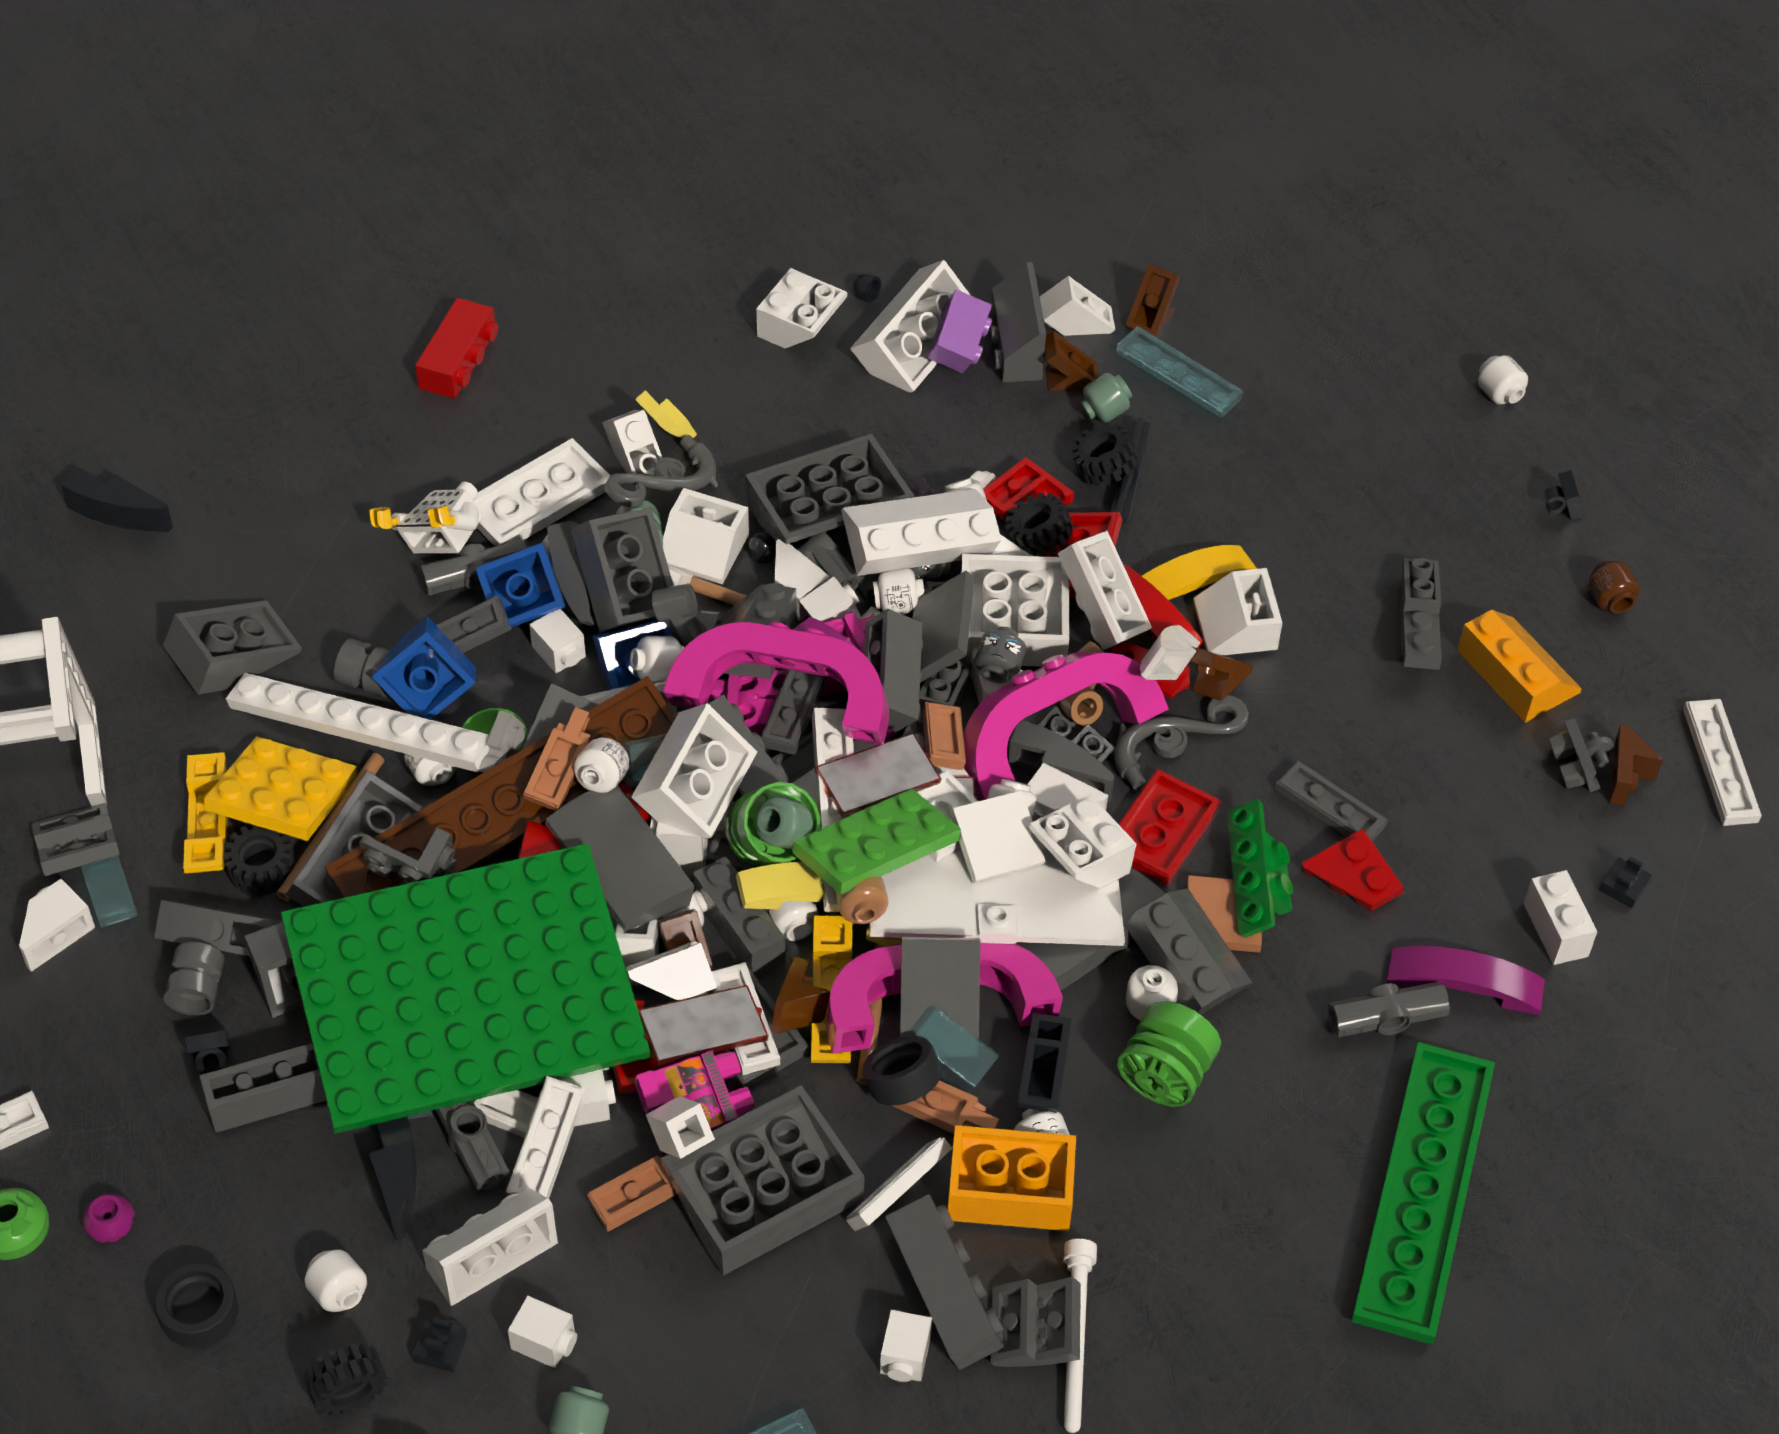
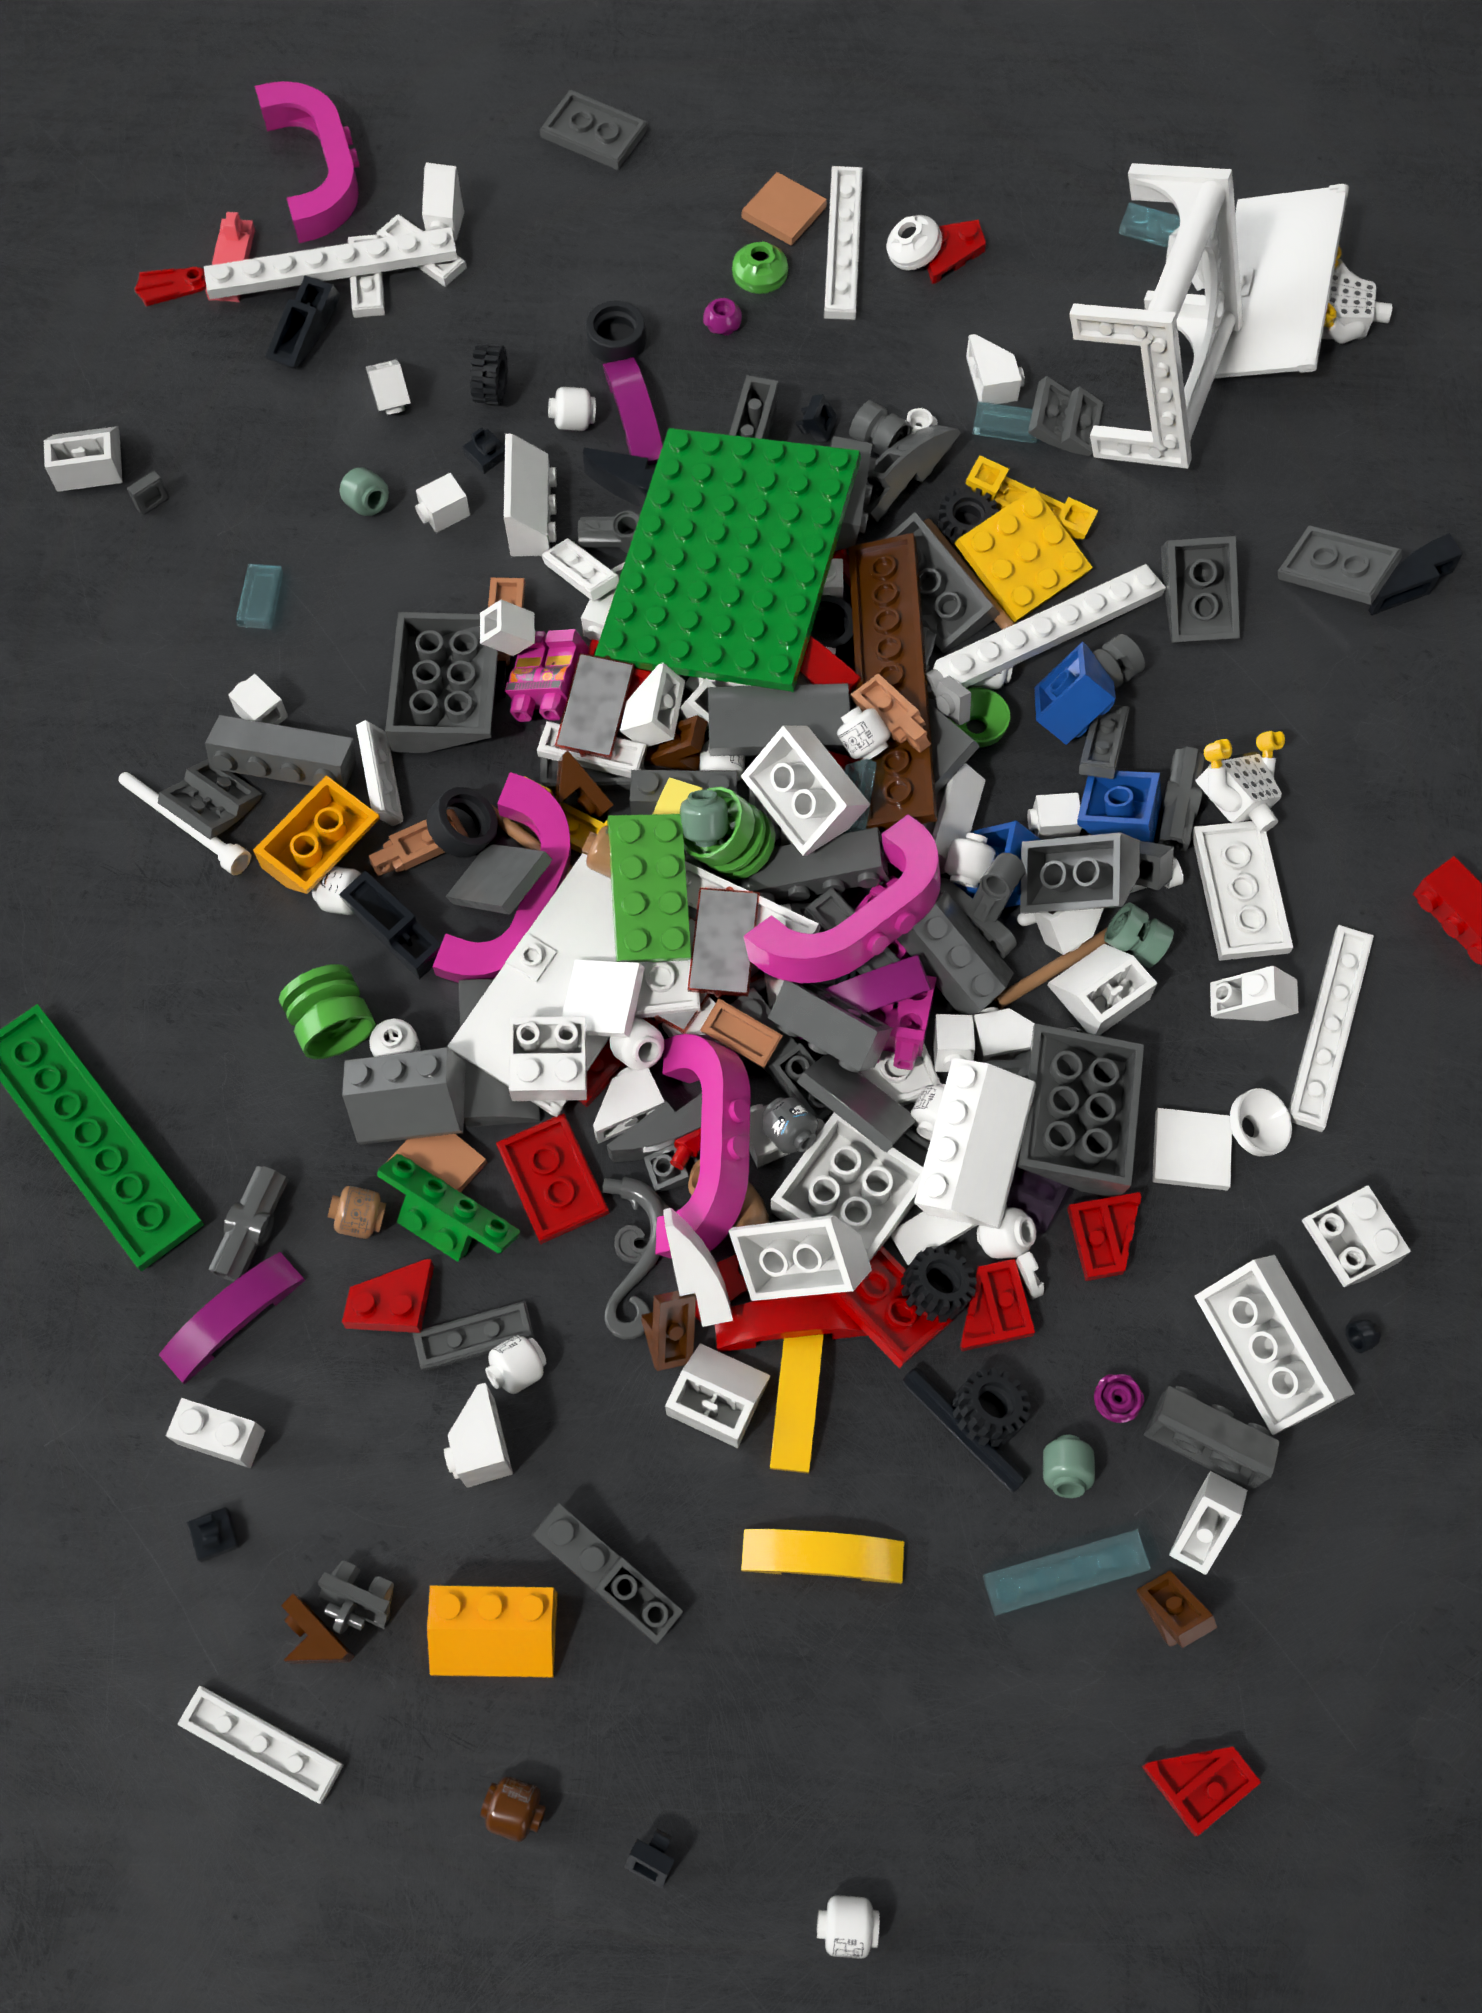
camera: 125 degrees right, 15 degrees up
(140, 554) = (1340, 564): none -> dark grey tile
(154, 951) = (920, 417): none -> white plate
(289, 1227) = (634, 409): none -> magenta slope
(434, 862) = (863, 564): dark grey bracket -> none
(619, 398) = (1330, 1028): none -> white tile
(666, 416) = (1268, 1032): light yellow slope -> none
(667, 476) = (1182, 1037): dark grey plant -> none
(749, 397) = (1269, 1118): none -> white piece
(793, 432) = (1192, 1149): none -> white tile
(919, 452) = (1104, 1233): none -> red wing
(957, 1047) = (456, 874): clear light blue tile -> none
(960, 331) = (1235, 1370): medium lavender brick -> none
(1031, 395) = (1123, 1386): none -> magenta plate
(1062, 726) = (686, 1146): none -> red bar
(1067, 365) = (1134, 1460): reddish brown slope -> none
(1248, 251) = (1203, 1784): none -> red wing
(1296, 507) = (823, 1554): none -> yellow slope
(1310, 932) = (357, 1212): none -> medium nougat head
(1330, 754) = (515, 1364): none -> white head
(1408, 731) = (477, 1442): none -> white slope

